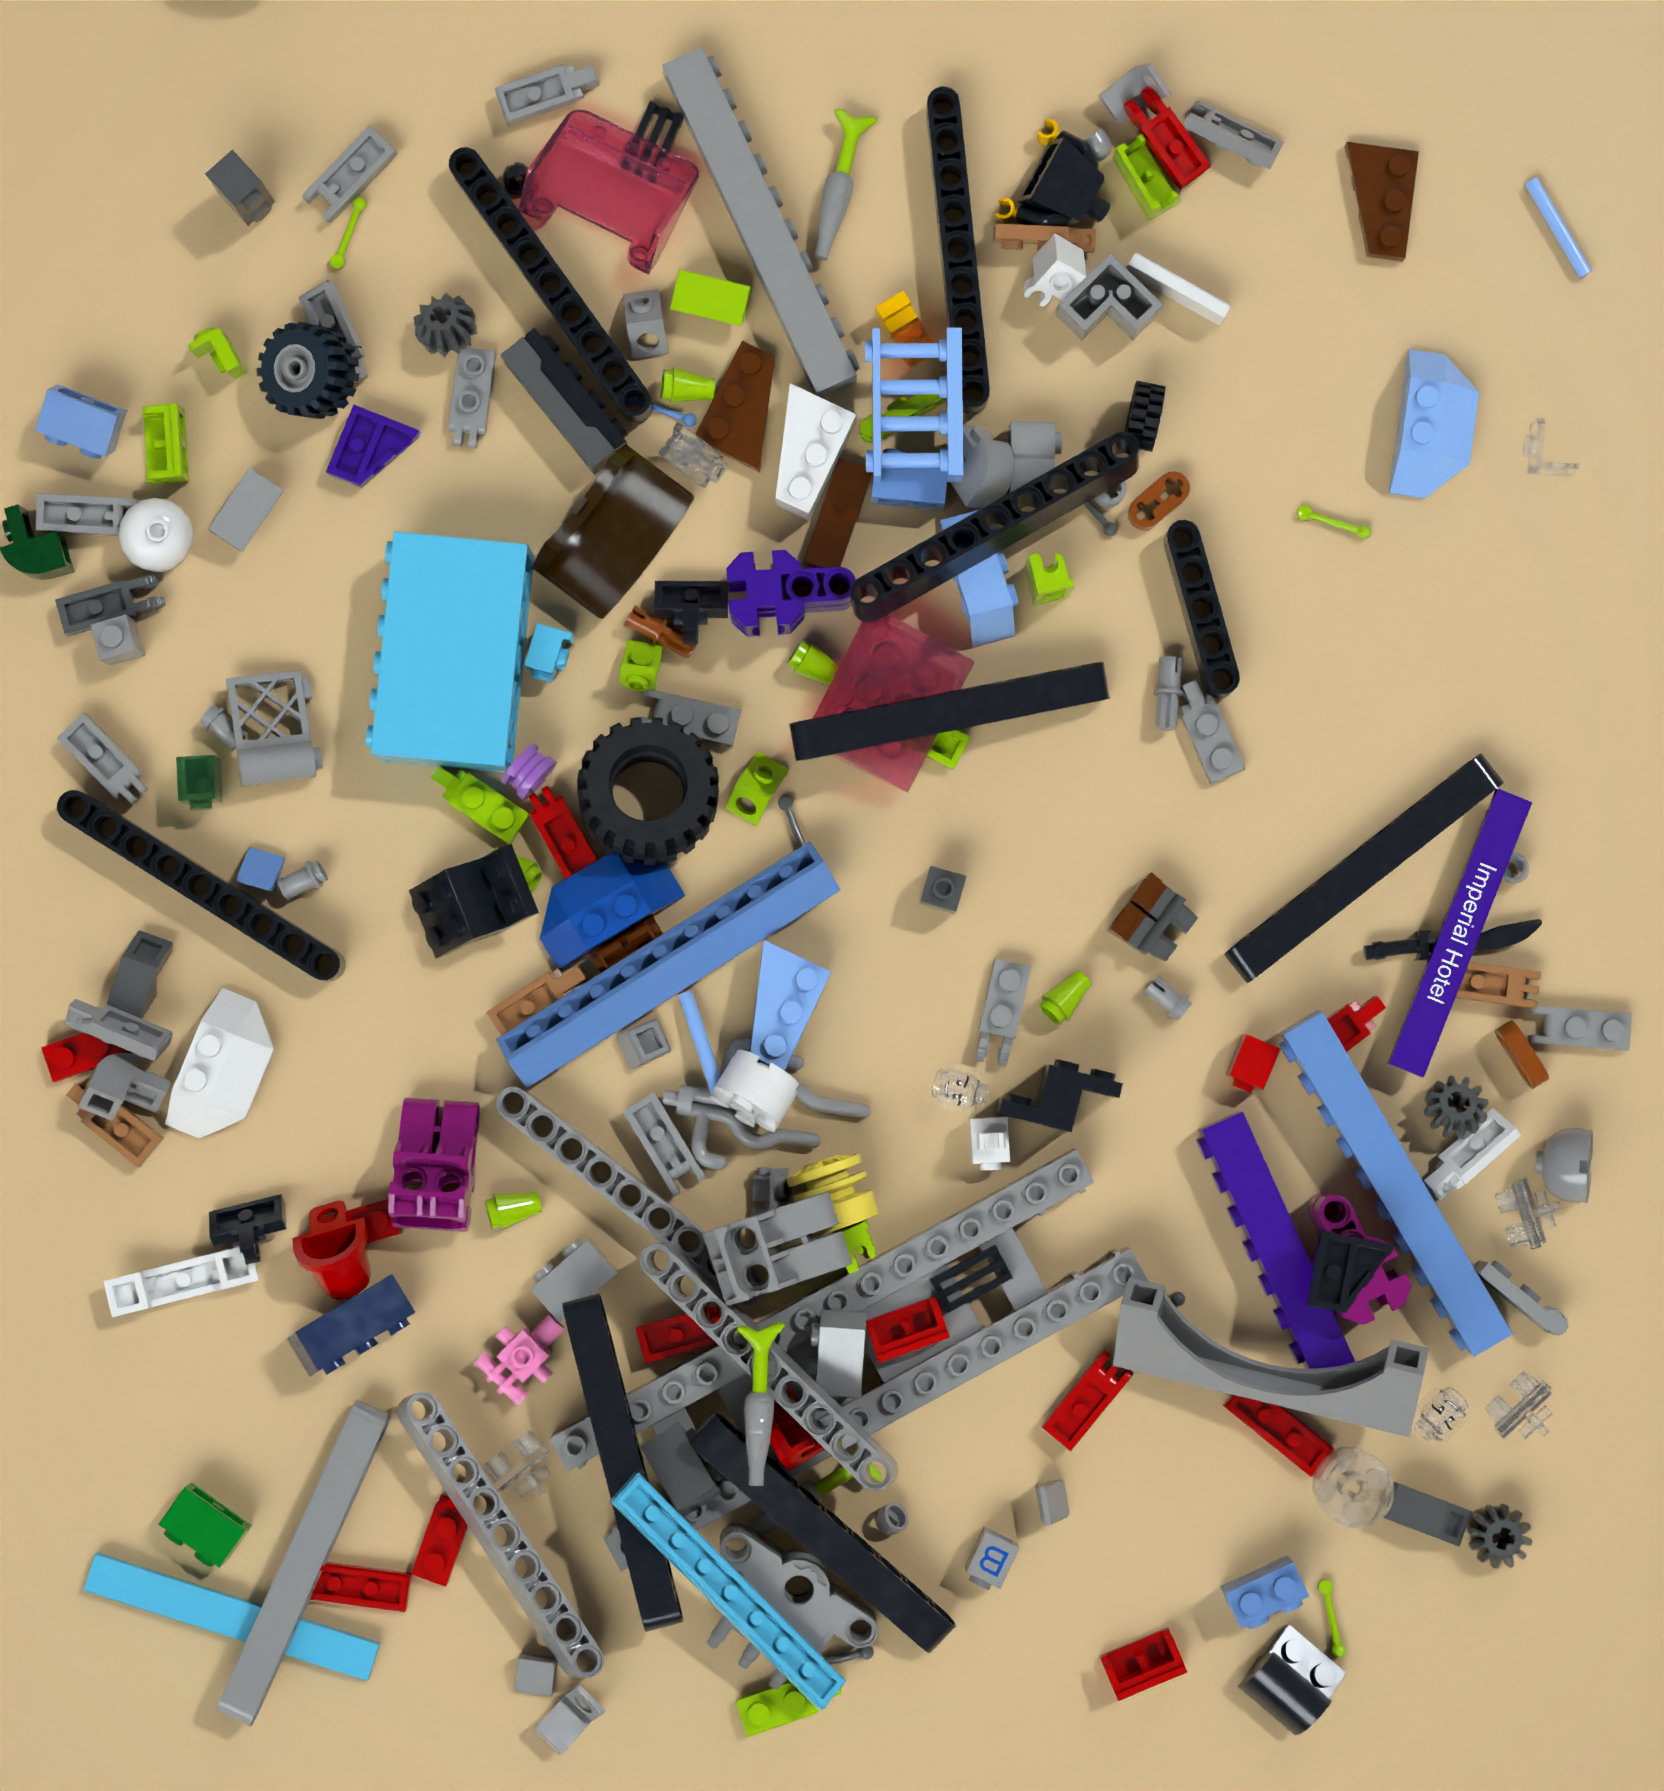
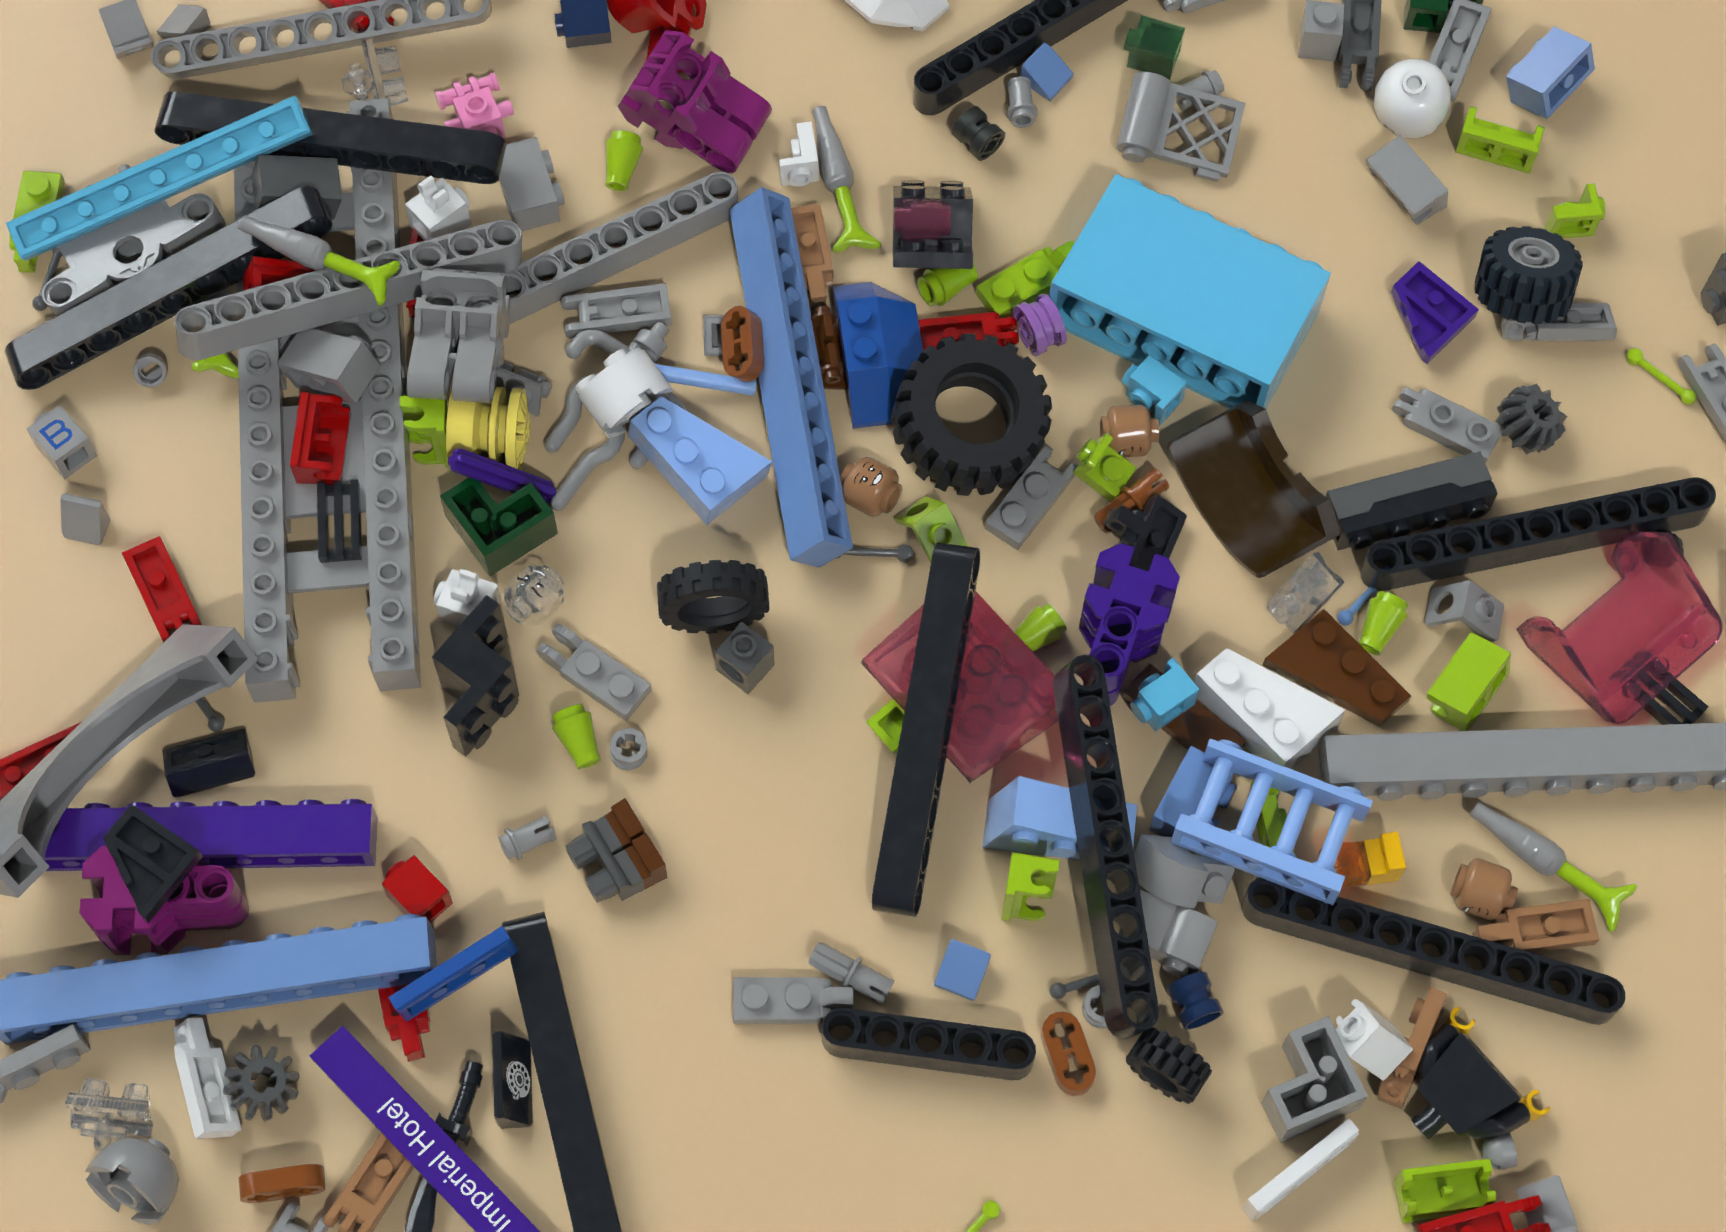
camera: 110 degrees right, 20 degrees down
(353, 903) = (978, 133): none -> pearl dark grey wheel
(437, 1048) = (803, 165): none -> white bracket
(450, 1007) = (839, 180): none -> piece
(485, 903) = (923, 219): none -> clear pink brick
(596, 658) = (1130, 429): none -> medium nougat head
(644, 1336) = (438, 209): none -> white brick
(659, 1015) = (746, 343): none -> dark orange beam
(743, 852) = (870, 486): none -> medium nougat head
(836, 534) = (1164, 696): none -> medium azure brick
(874, 1160) = (497, 474): none -> dark purple axle
(887, 227) = (1483, 889): none -> medium nougat head
(902, 173) = (1544, 927): none -> medium nougat hinge
(910, 932) = (685, 593): none -> black tyre
(922, 1146) = (498, 531): none -> dark green brick
(1065, 959) = (635, 760): none -> light grey bush
(1074, 420) = (1194, 997): none -> dark blue wheel
(1127, 608) = (962, 969): none -> medium blue slope
(1212, 1288) = (208, 763): none -> black slope
(1315, 993) = (453, 974): none -> blue tile
(1366, 917) = (512, 1081): none -> black slope

